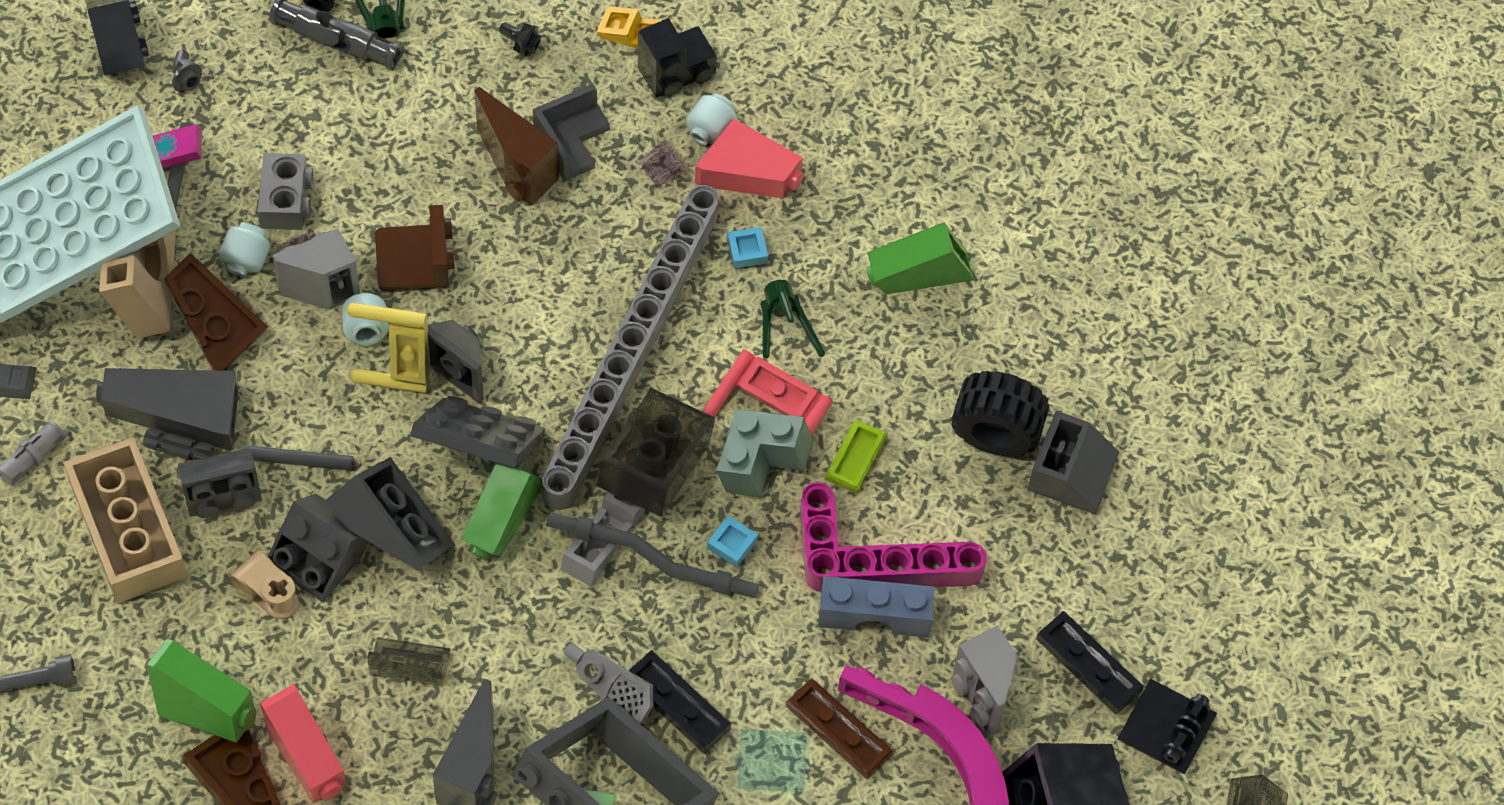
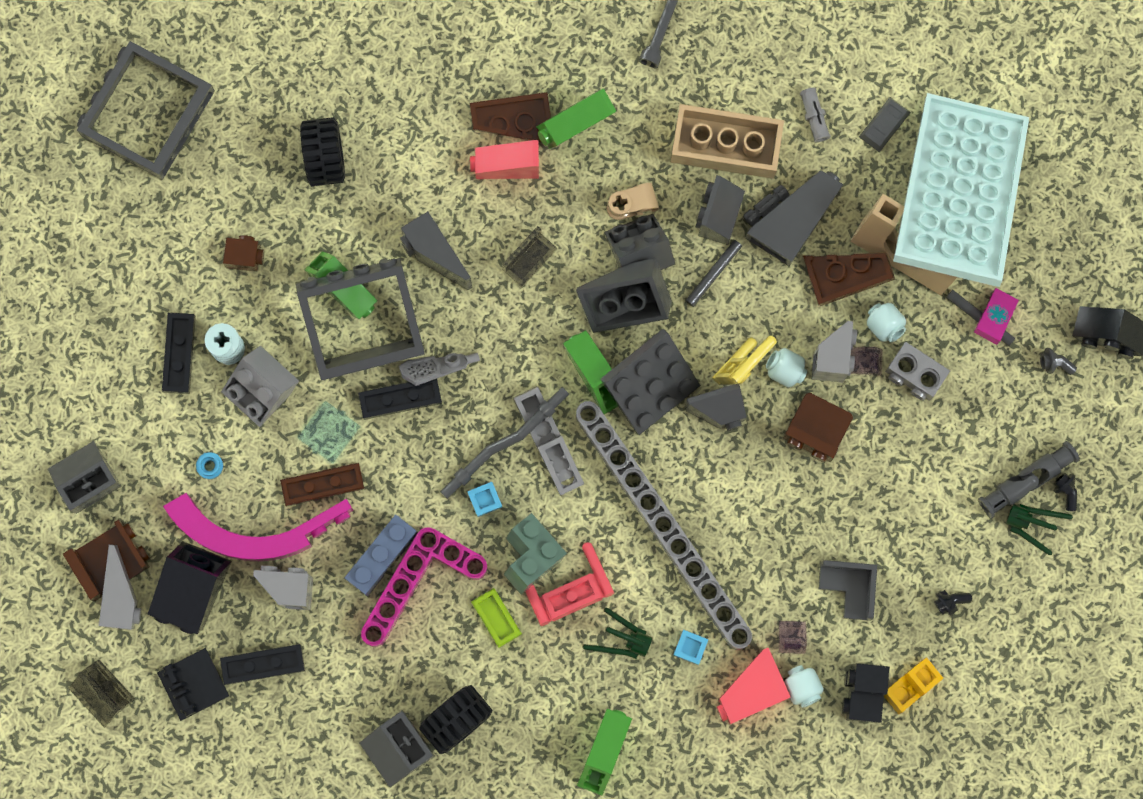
camera: 125 degrees right, 20 degrees up
(519, 150) = (848, 534): reddish brown slope -> none
(655, 452) = (569, 484): clear smoke brick -> none

